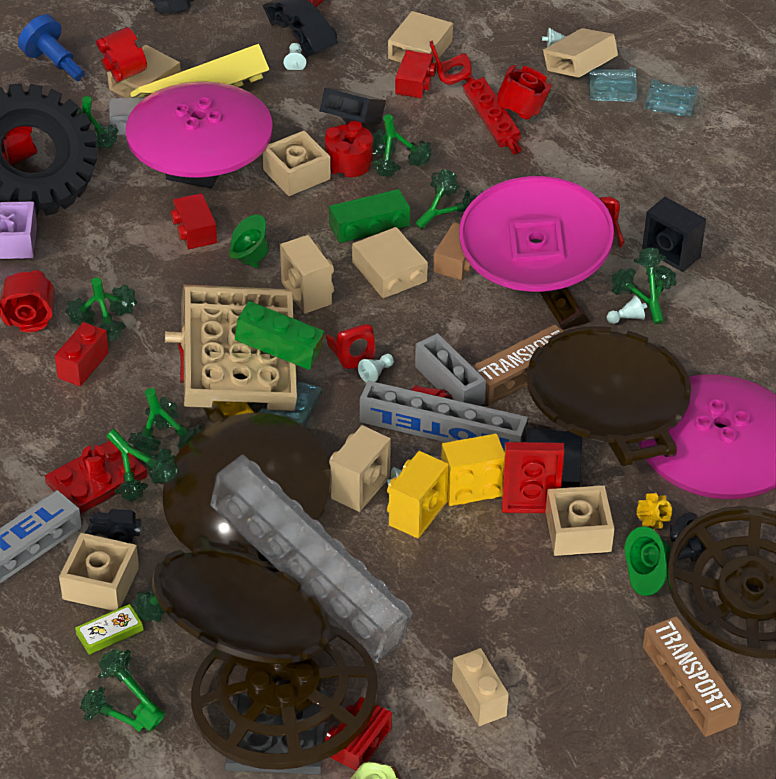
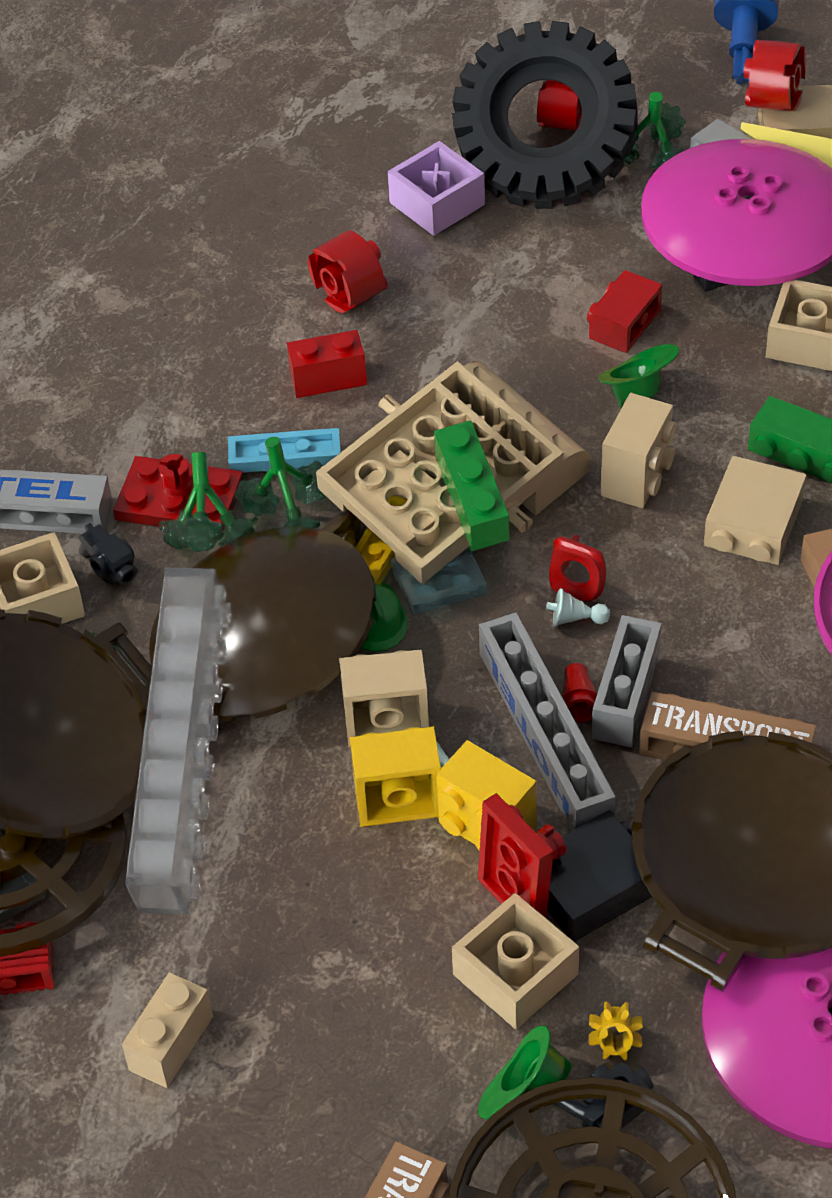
camera: 55 degrees right, 5 degrees up
(120, 301) = (390, 322): clear green plant -> none
(120, 411) = (300, 449): none -> medium azure plate

